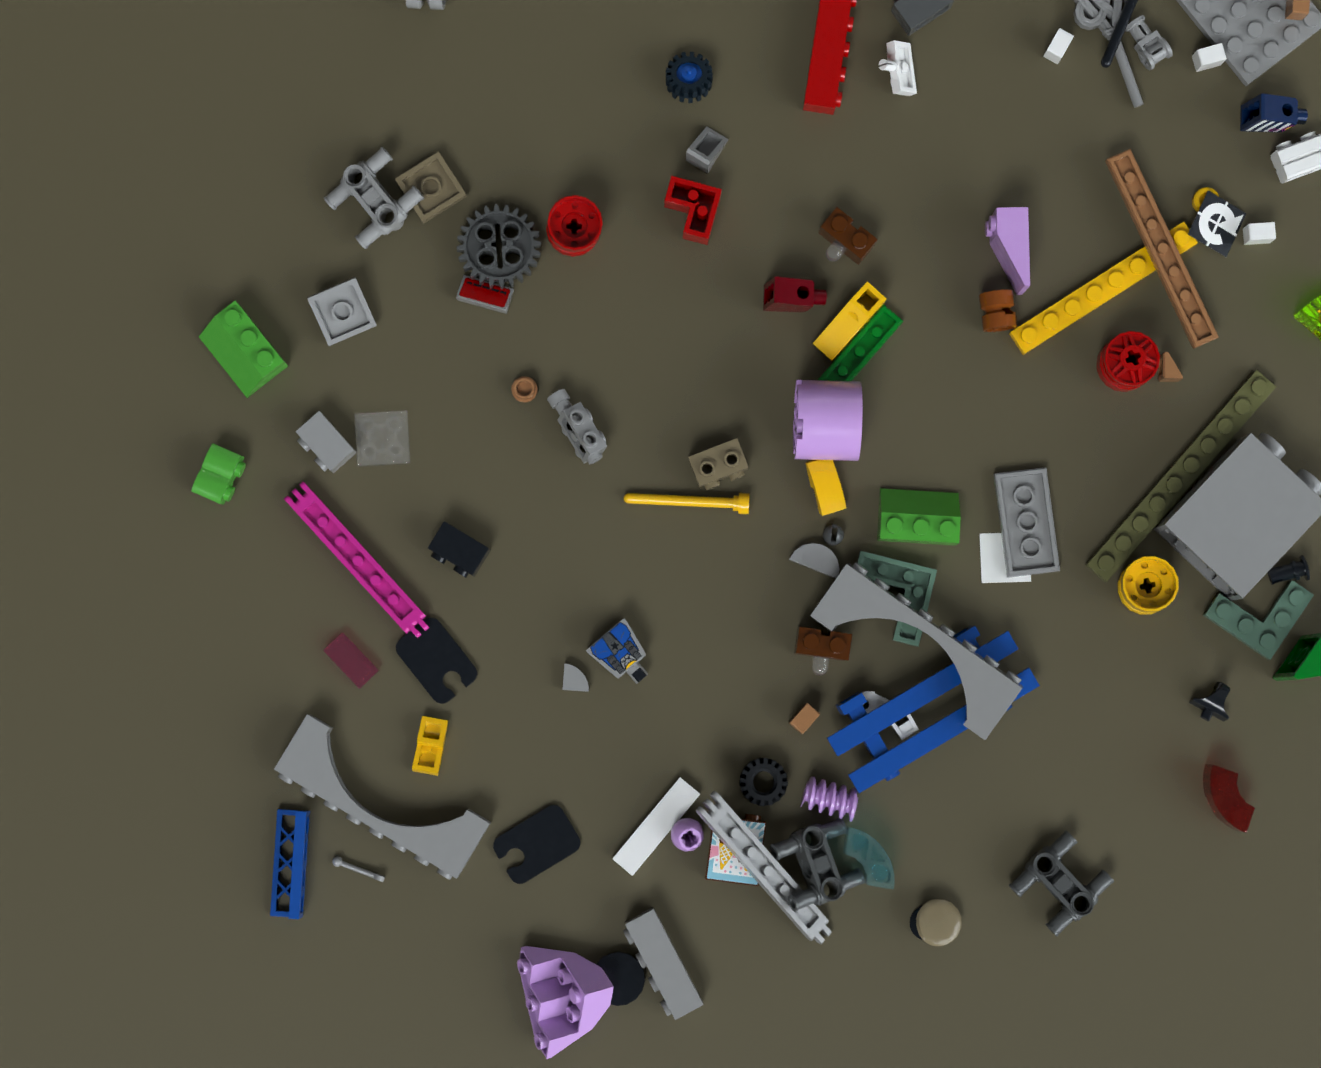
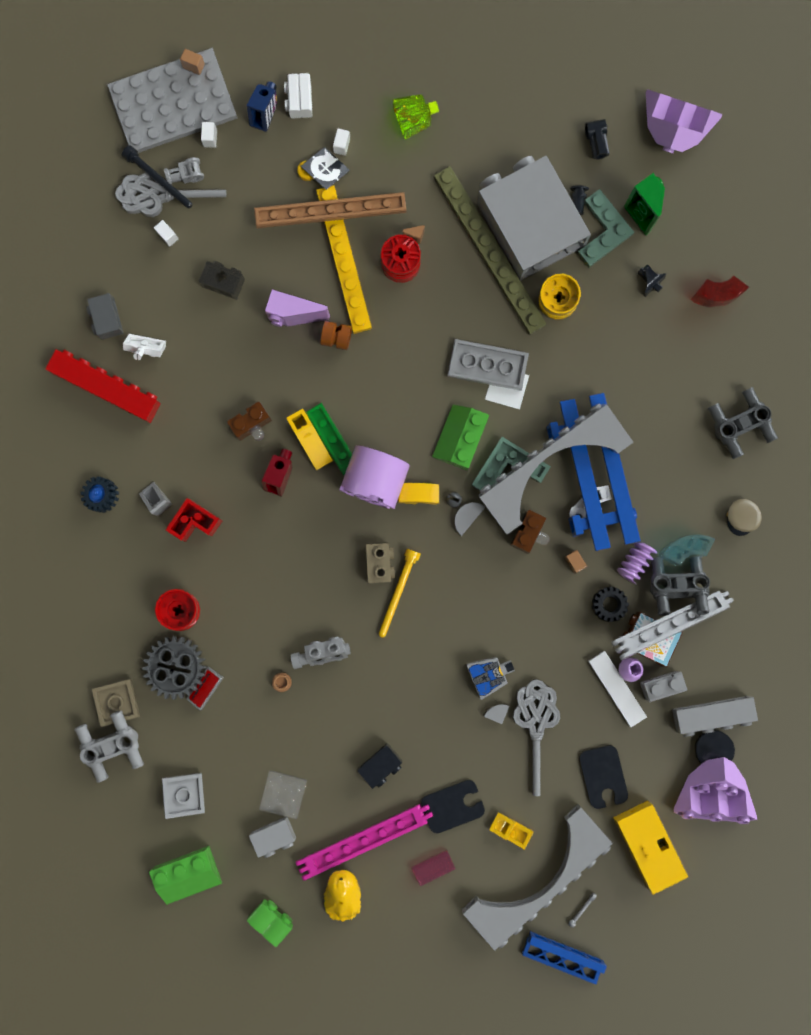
camera: 65 degrees left, 0 degrees up
(279, 555) = (342, 896): none -> yellow piece
(466, 931) = (650, 847): none -> yellow brick
(560, 739) = (531, 695): none -> light grey piece
(679, 884) = (663, 686): none -> light grey brick
(1014, 151) = (214, 271): none -> clear smoke brick

